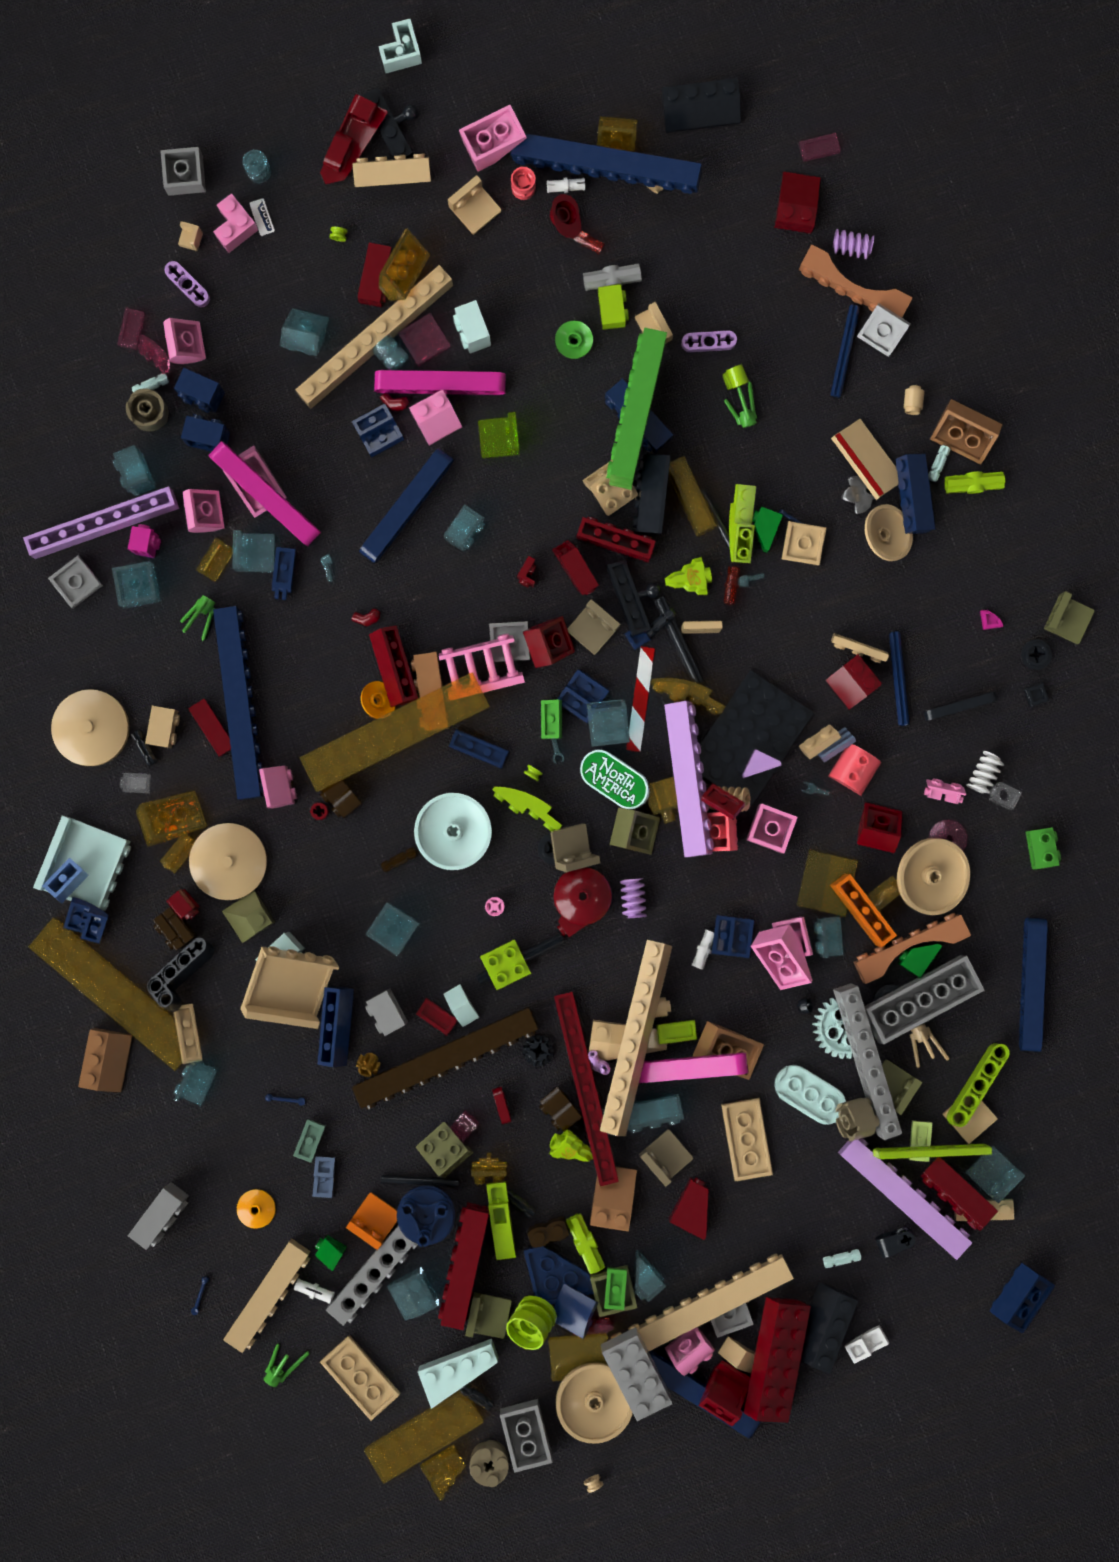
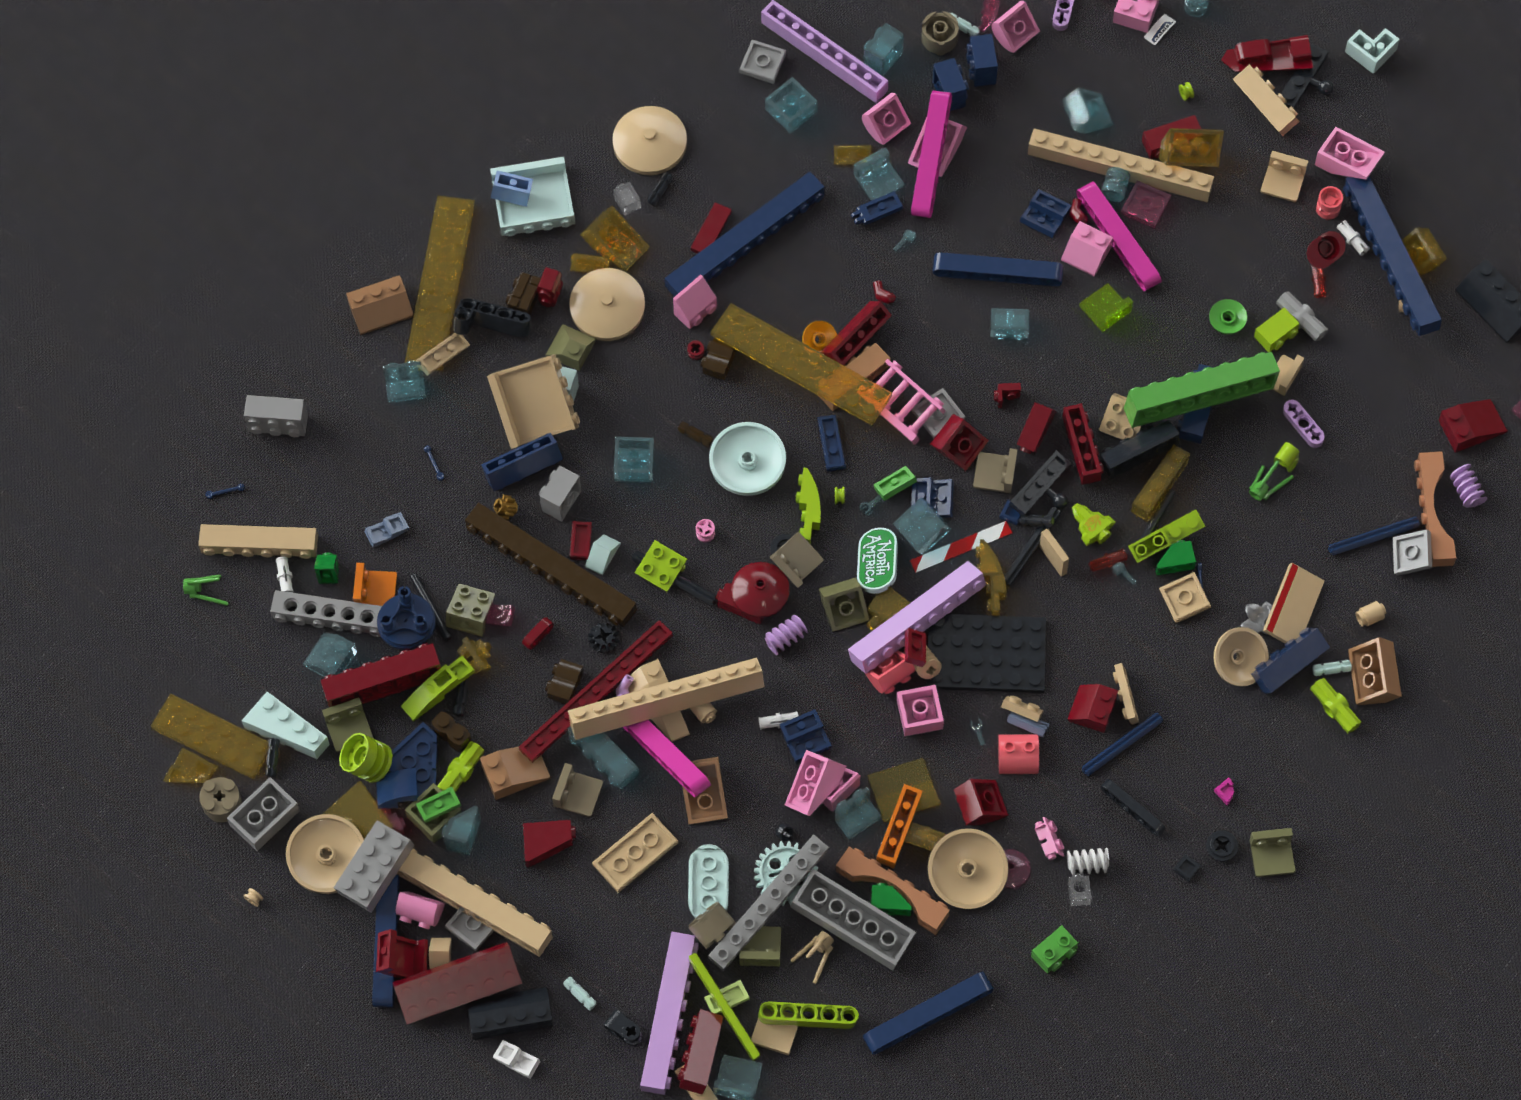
camera: 60 degrees right, 20 degrees down
(86, 919) = (488, 222): dark blue slope -> none
(143, 541) = (830, 89): dark pink brick -> none
(162, 727) = (686, 191): tan brick -> none
(204, 606) = (807, 165): bright green plant -> none
(261, 1200) = (326, 501): light orange dish -> none
(309, 1140) = (411, 499): sand green plate -> none
(360, 1377) = (231, 656): tan tile -> none
(472, 327) = (1181, 231): light aqua brick -> none
(569, 1147) = (536, 706): lime rock -> none
(676, 1032) = (692, 738): lime tile -> none
(759, 763) = (968, 665): lavender slope -> none

